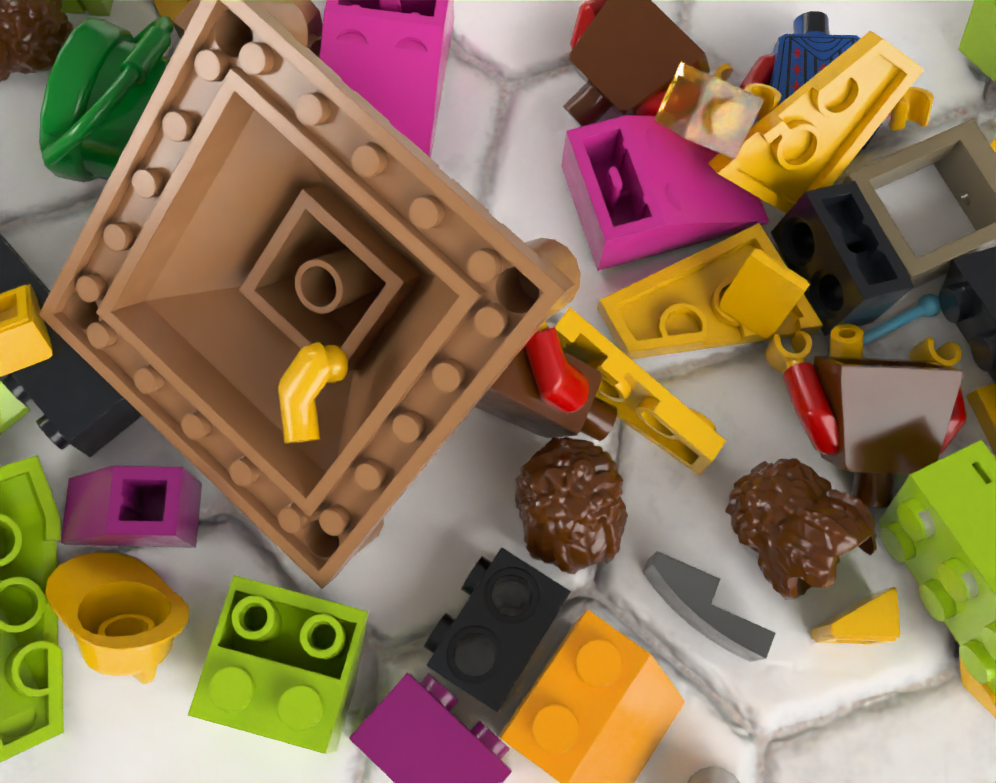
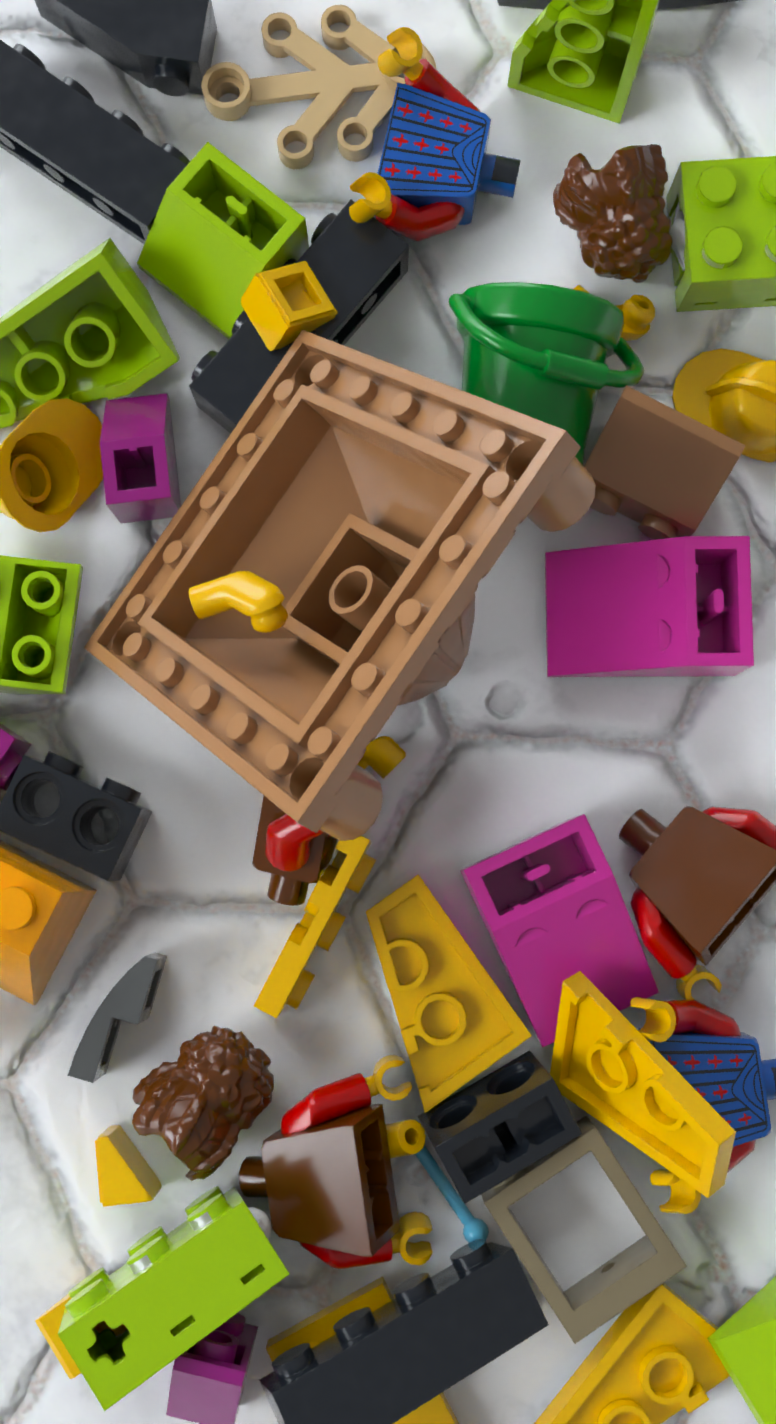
camera: 85 degrees right, 10 degrees up
(571, 504) = (193, 871): reddish brown hair -> none
(708, 110) = (627, 963): clear yellow brick -> none
(762, 294) = (438, 1042): yellow slope -> none

